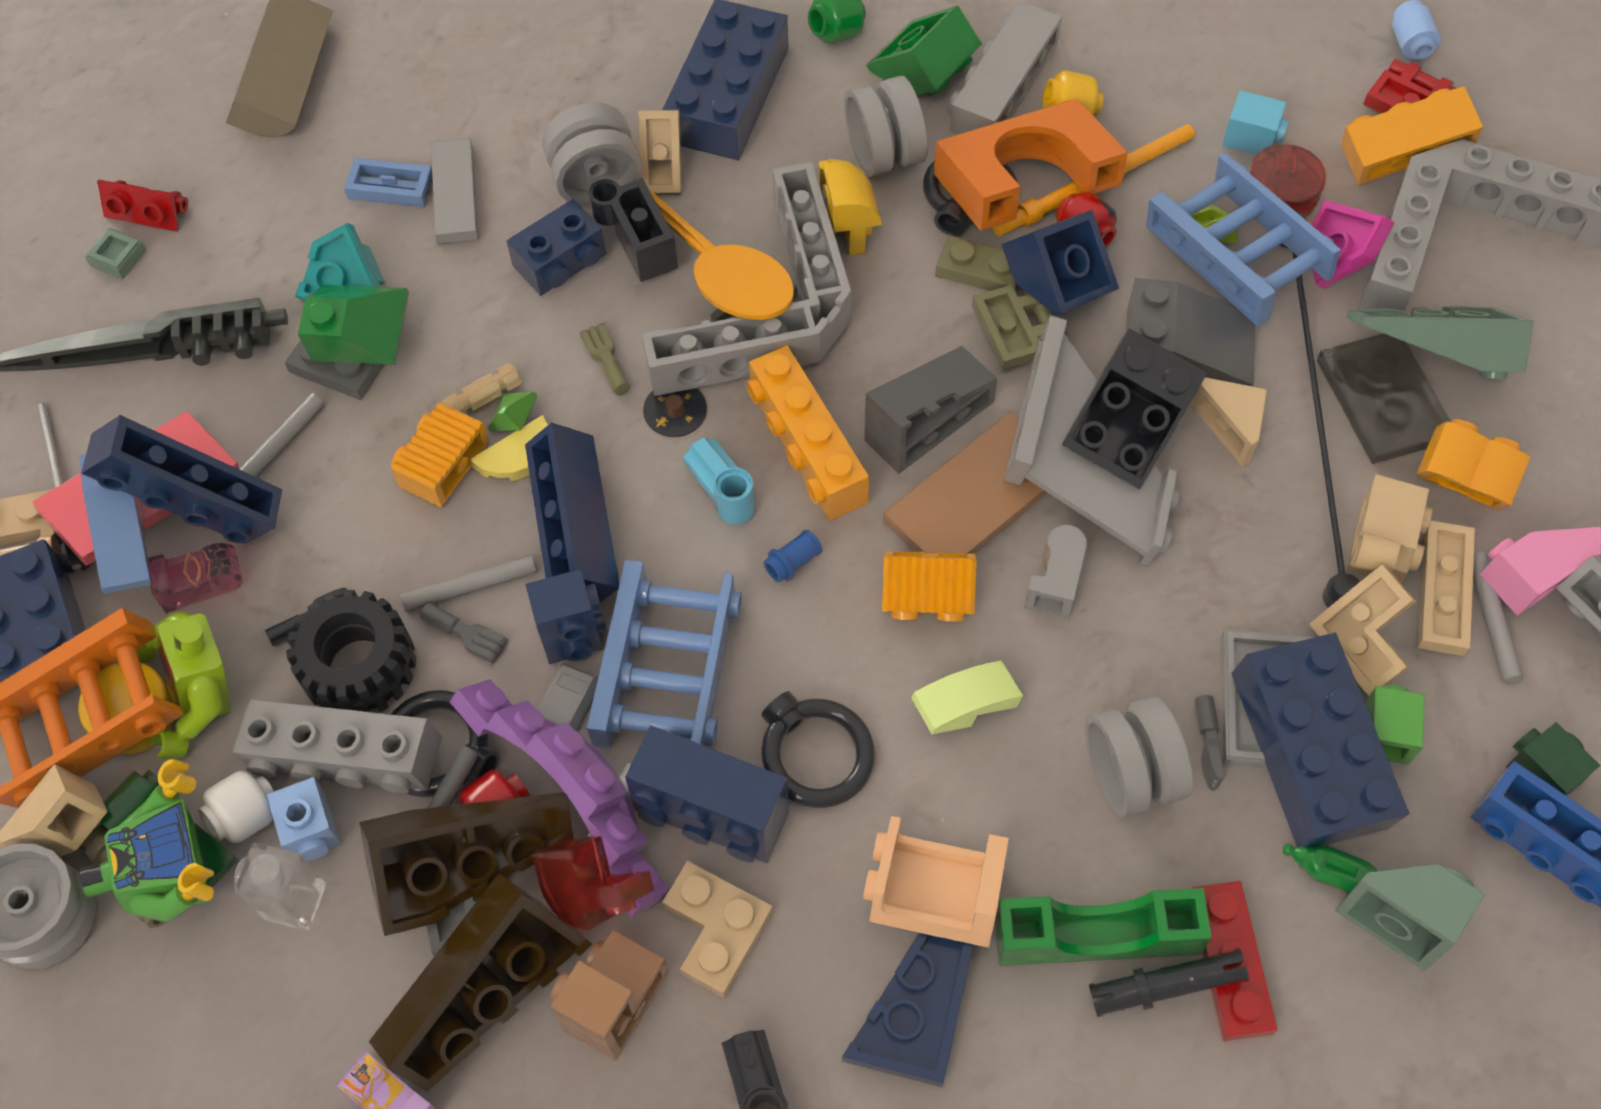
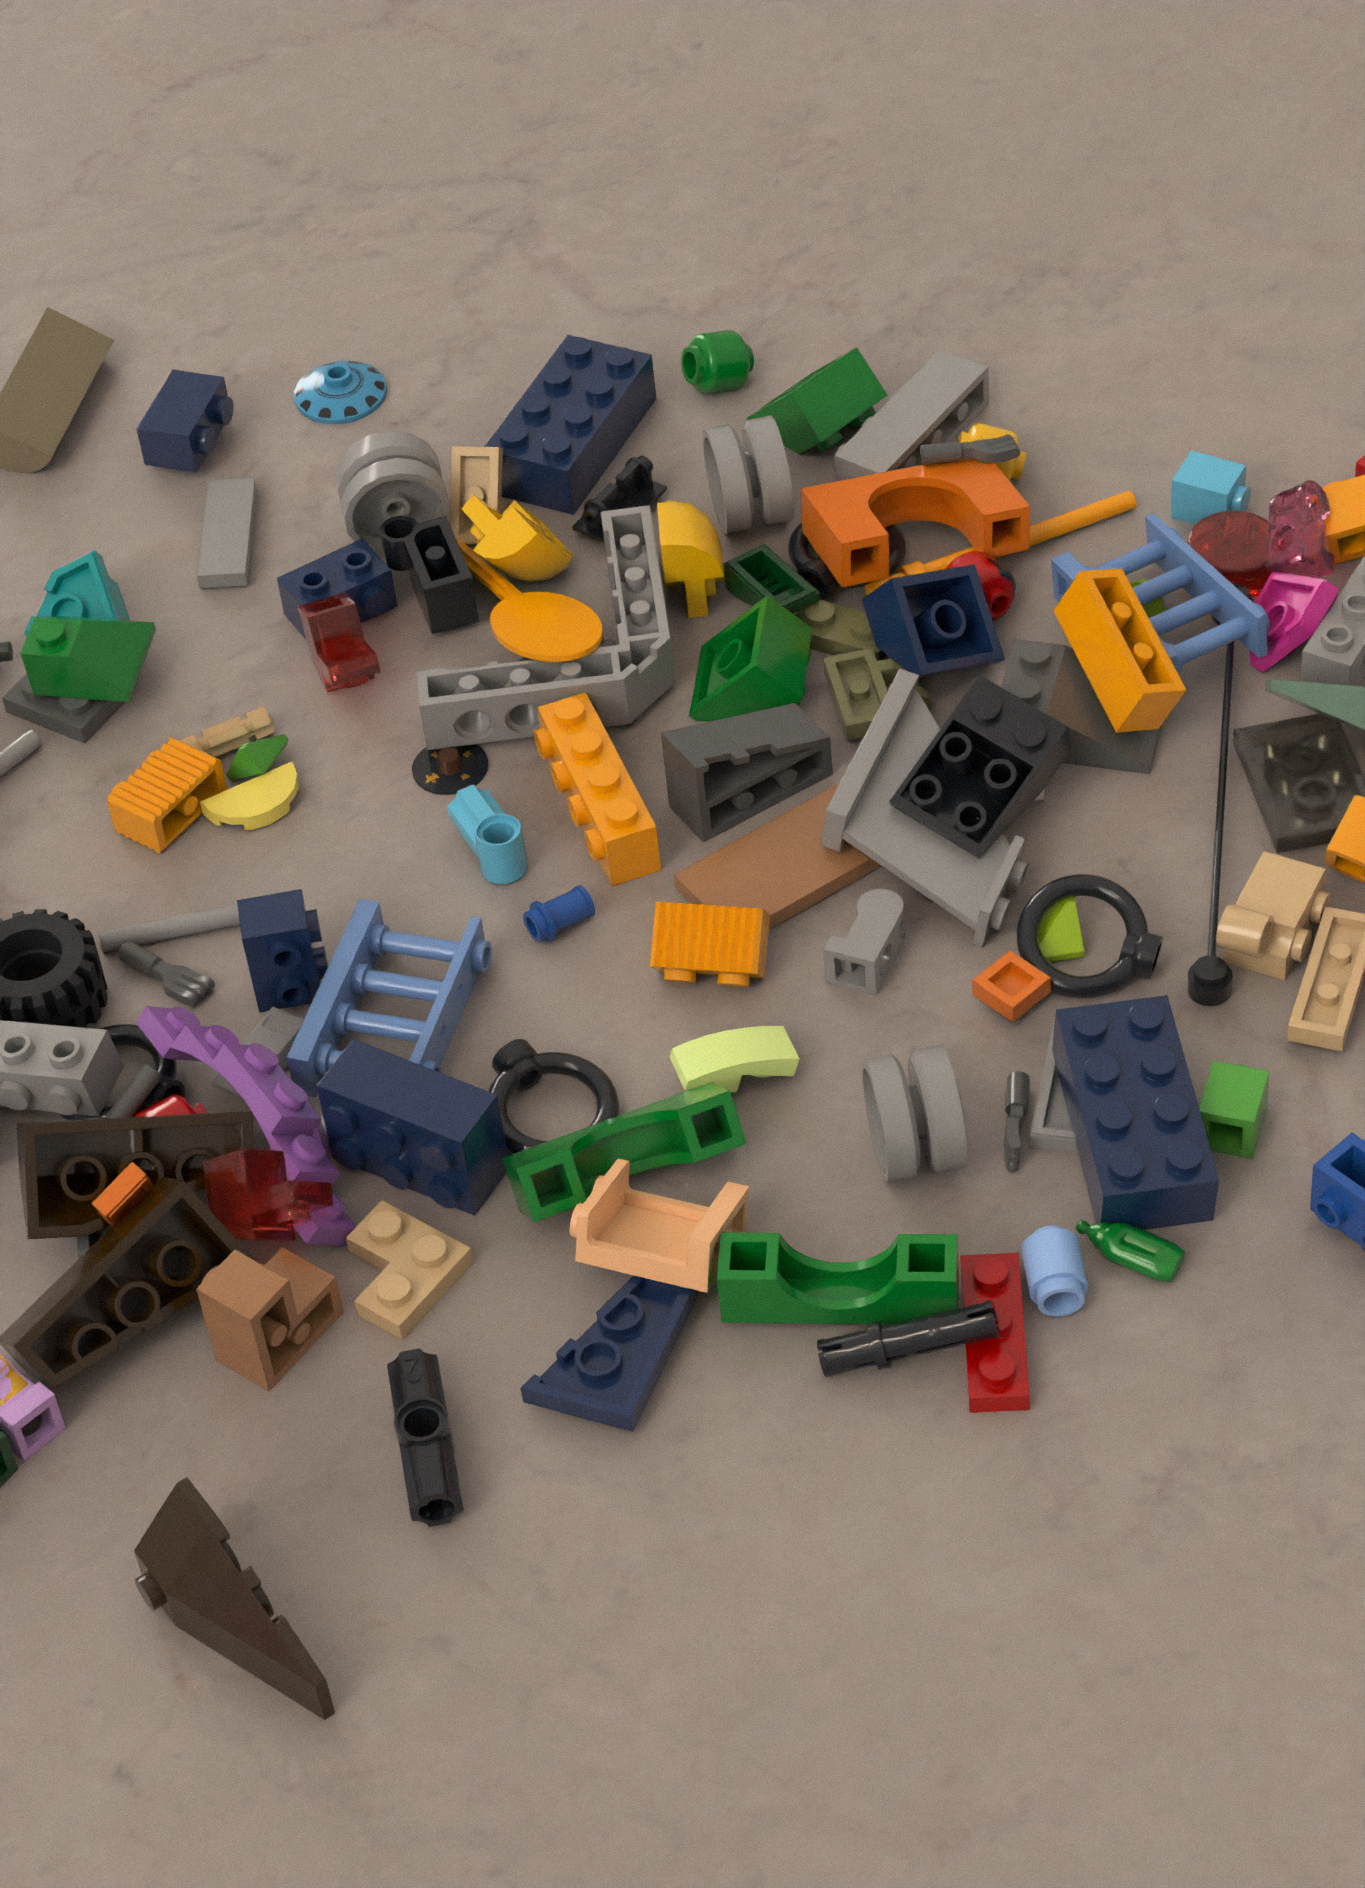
camera: 10 degrees right, 15 degrees down
(387, 188) = (151, 522): medium blue tile -> none
(404, 87) = (184, 421): none -> dark blue brick
(467, 895) = (122, 1194): none -> orange tile
(528, 51) = (340, 392): none -> dark azure dish
(567, 300) = (338, 642): none -> clear red brick
(571, 507) = (309, 842): dark blue brick -> none
(602, 349) = (374, 700): olive piece -> none
(702, 195) = (516, 541): none -> yellow brick
(779, 148) = (632, 489): none -> black hinge
(910, 207) = (764, 573): none -> dark green slope
(915, 307) = (752, 664): none -> green slope
(936, 776) = (657, 1135): none -> green arch
(1079, 98) = (986, 451): none -> dark grey piece
(1184, 609) = (1011, 986): none -> orange plate
(1206, 552) = (1061, 932): none -> lime slope
(1228, 289) = (1119, 650): none -> light orange brick
(1232, 414) = (1113, 790): tan slope -> none
(1276, 898) = (1055, 1270): none -> light blue brick
(1282, 572) = (1138, 951): none -> black piece
(1343, 165) = (1299, 532): none -> clear pink leg
(1358, 624) = (1214, 996): tan plate -> none
(1413, 909) = (1202, 1275): sand green slope -> none

